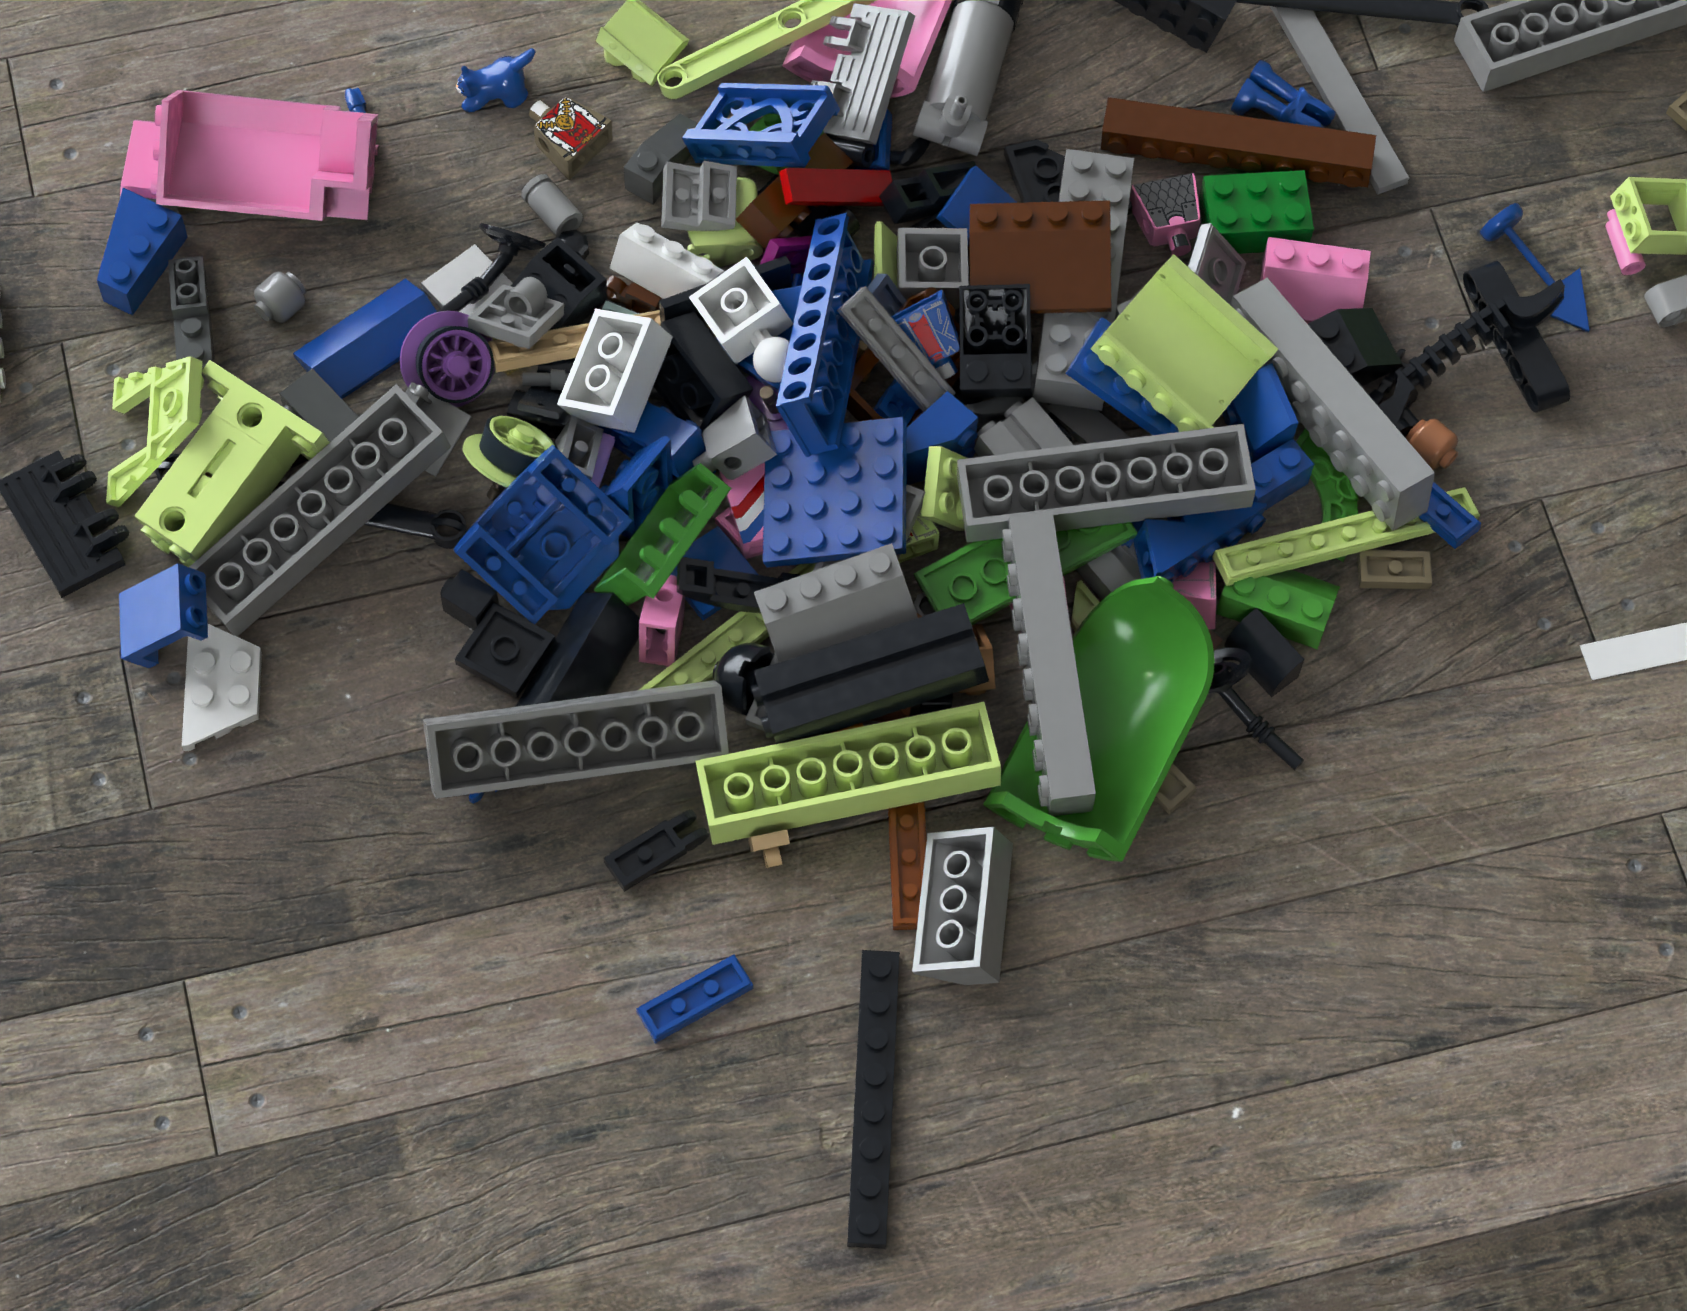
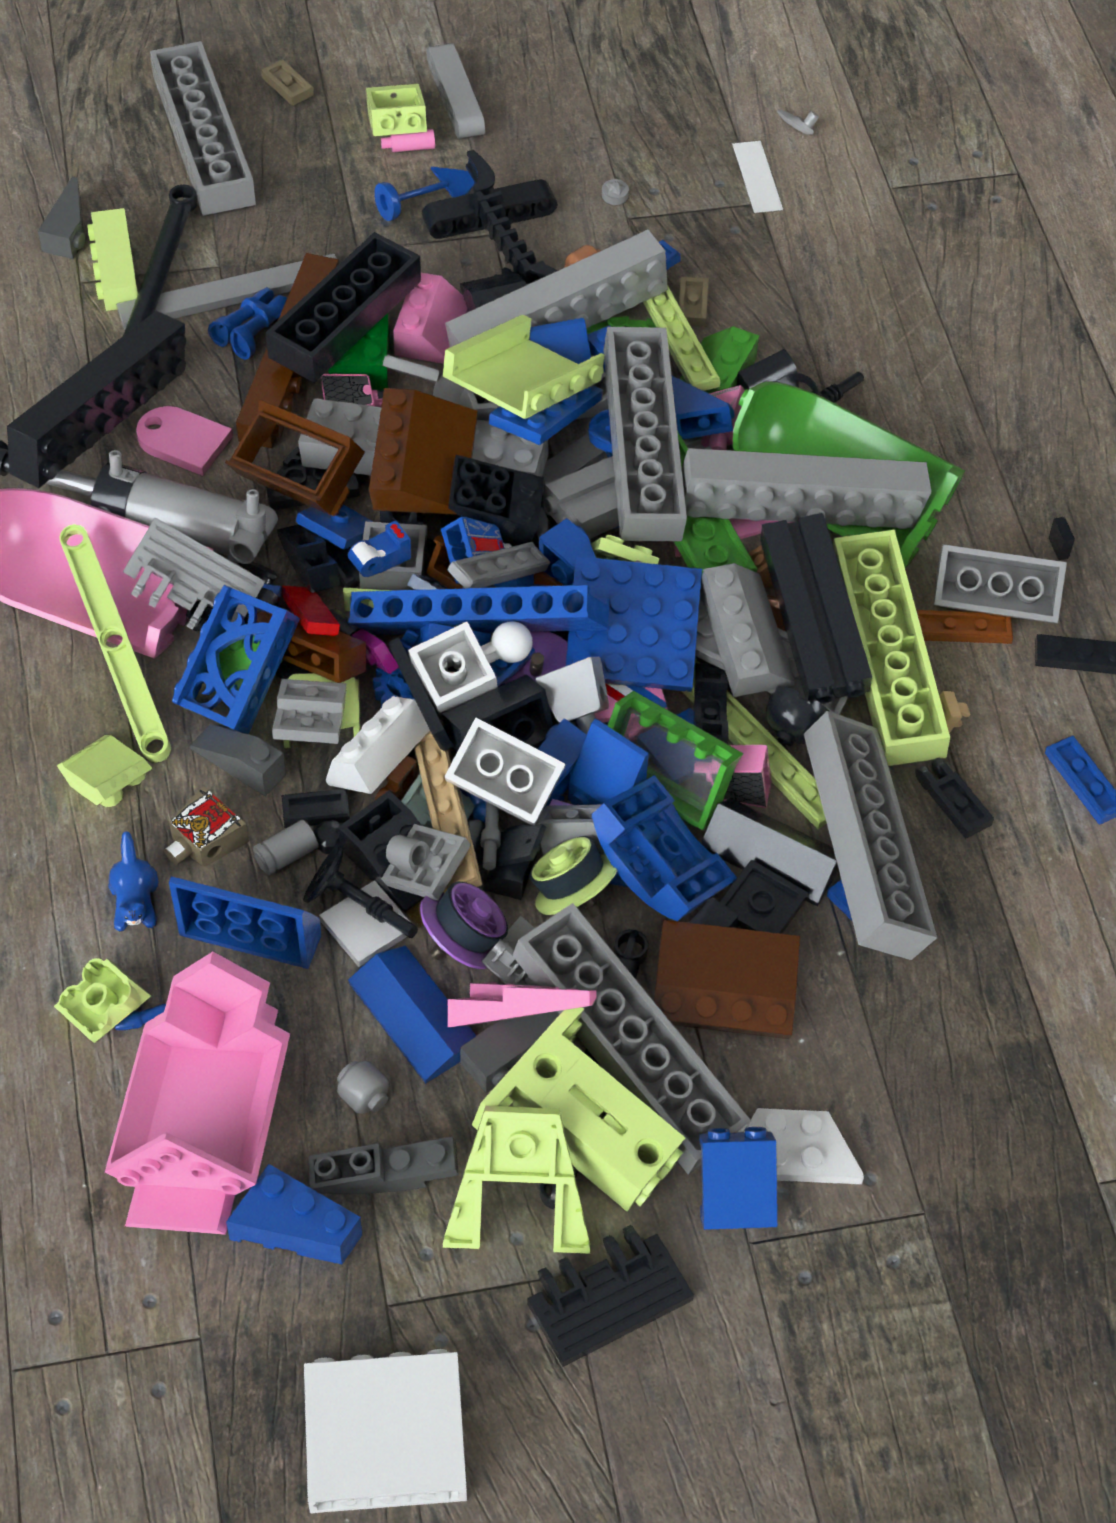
camera: 85 degrees left, 10 degrees down
(344, 397) = (506, 1001): none -> bright pink wedge
(372, 72) = (101, 998): none -> yellowish green slope
(394, 607) = (727, 979): none -> reddish brown slope
(453, 170) = (245, 923): none -> blue slope
(606, 225) = (315, 807): none -> black tile
(913, 240) = (381, 551): none -> blue leg
(993, 173) = (332, 488): none -> reddish brown piece
(1050, 986) = (1061, 538): none -> black tile
(1096, 62) = (182, 438): none -> bright pink tile
(1271, 170) = (343, 307): none -> black brick
(1580, 478) = (615, 192): none -> light grey tile

